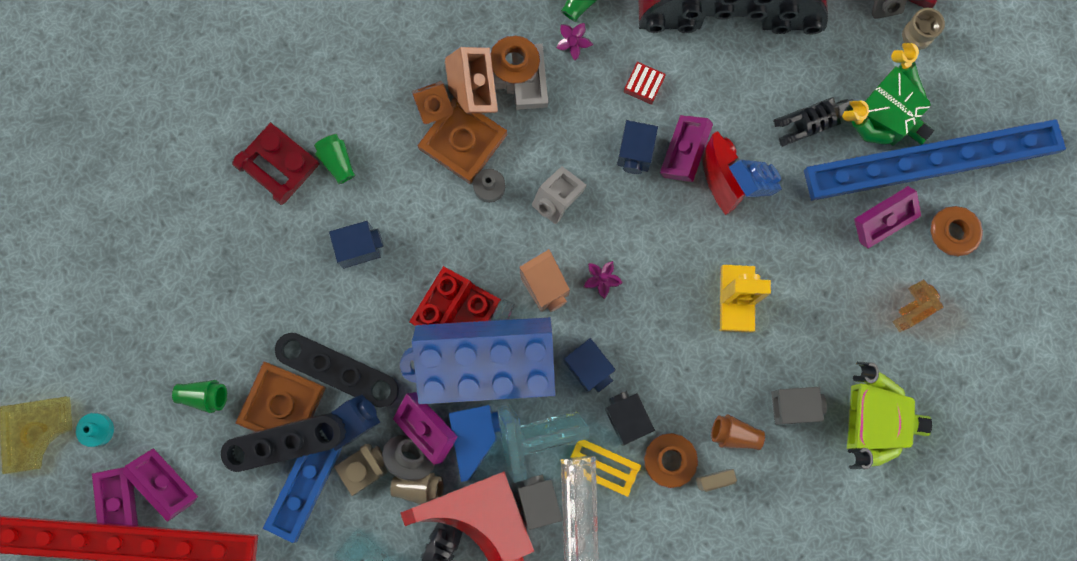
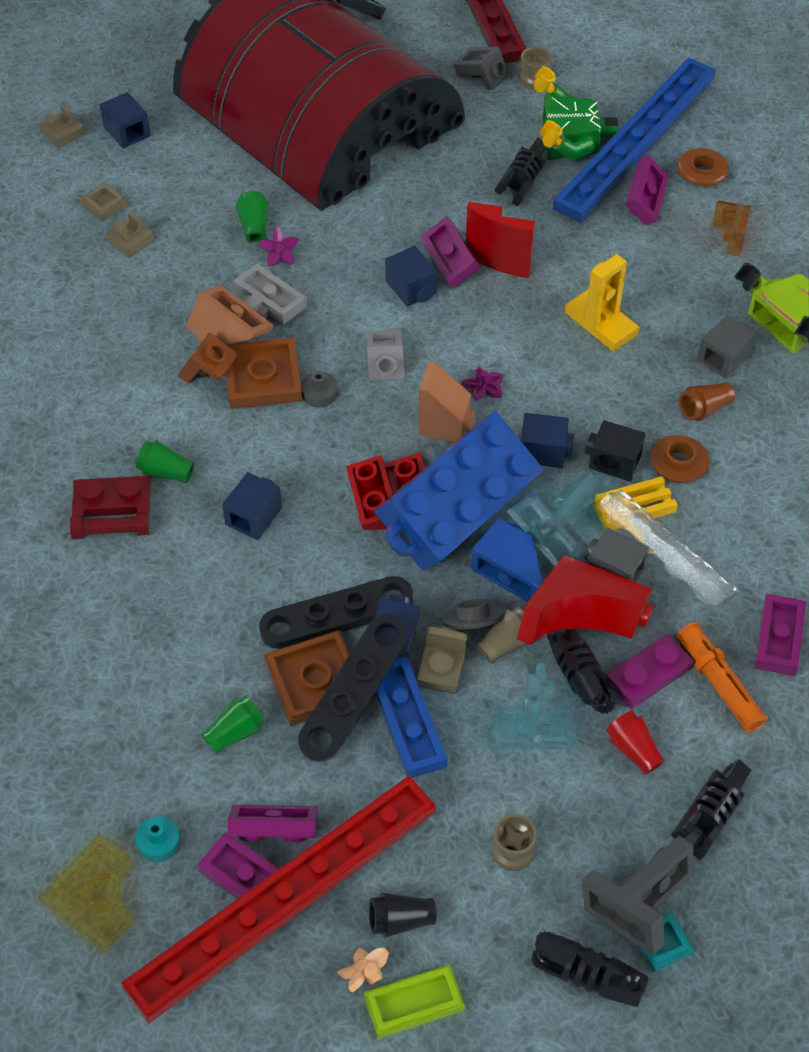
camera: 45 degrees left, 25 degrees down
(425, 428) = (463, 580): magenta plate -> none
(515, 73) = (253, 293): dark orange piece -> none
(644, 83) = (367, 238): red tile -> none
(716, 480) = (728, 438): dark tan tile -> none
(756, 178) = (530, 207): blue plate -> none

